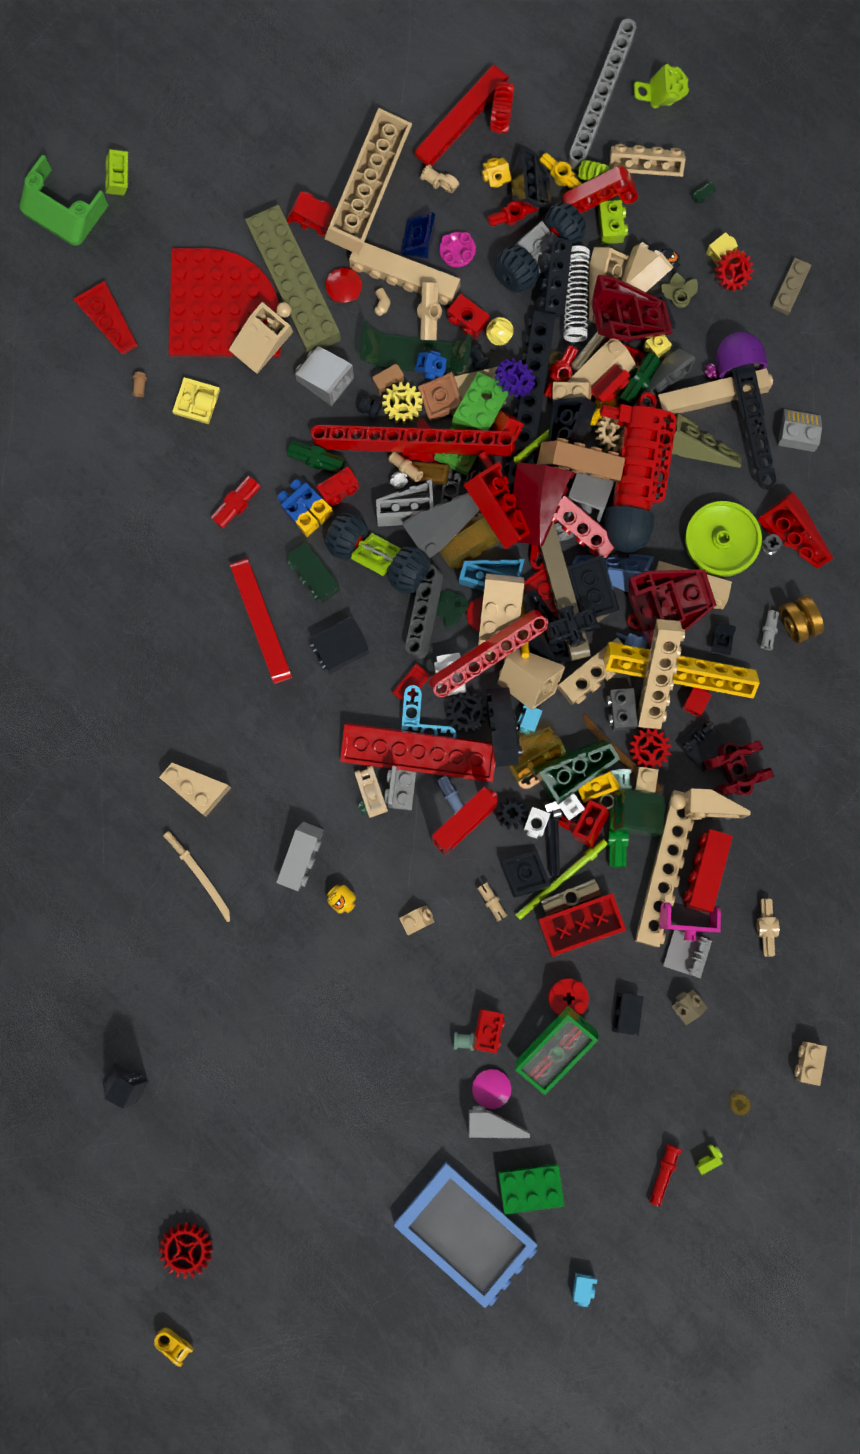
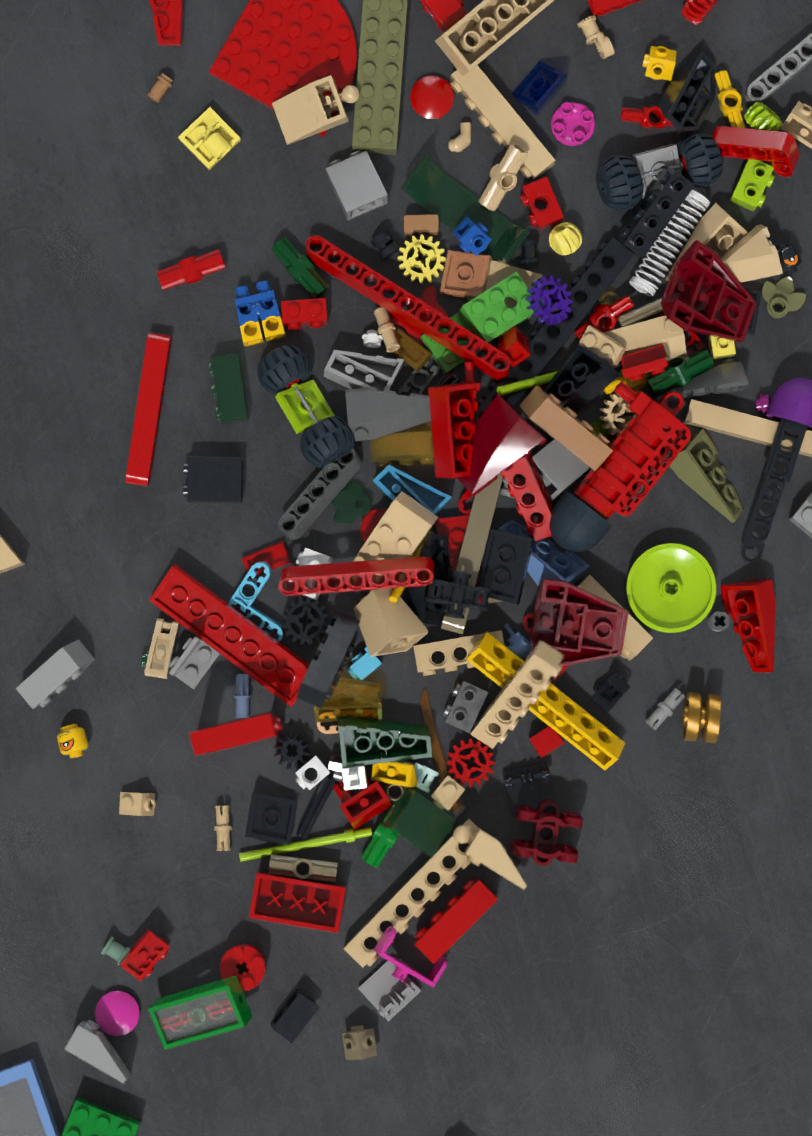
camera: 30 degrees right, 5 degrees up
(767, 927) = (485, 1009): tan axle -> none

